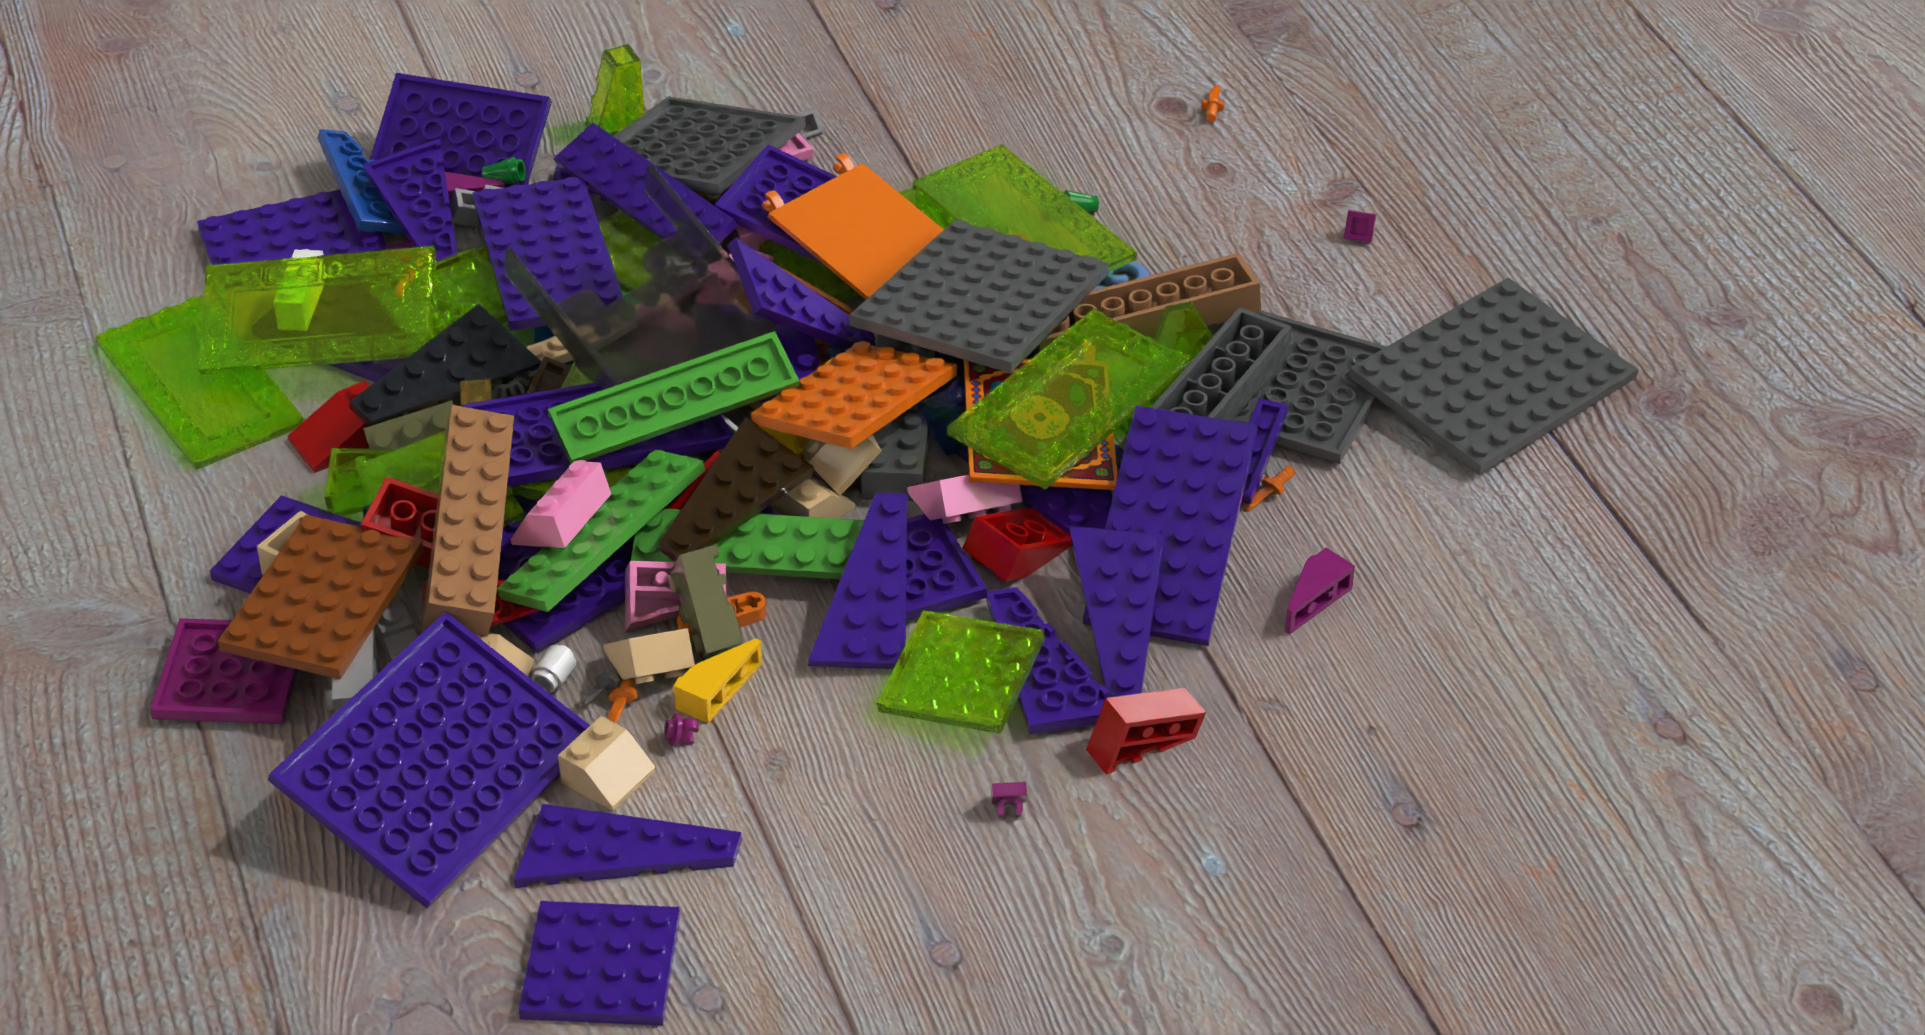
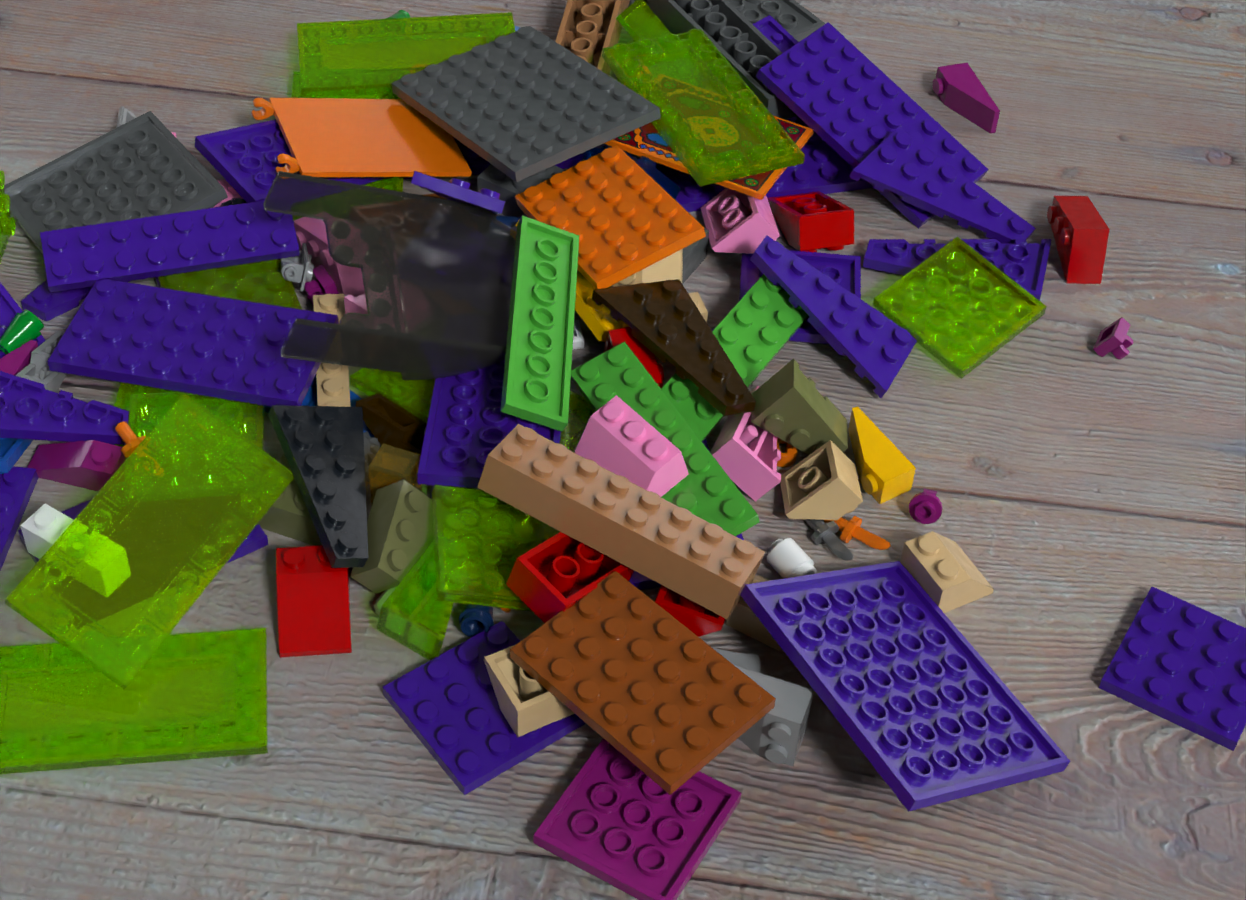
camera: 65 degrees left, 5 degrees up
(610, 846) = (1043, 611): dark purple wing -> none

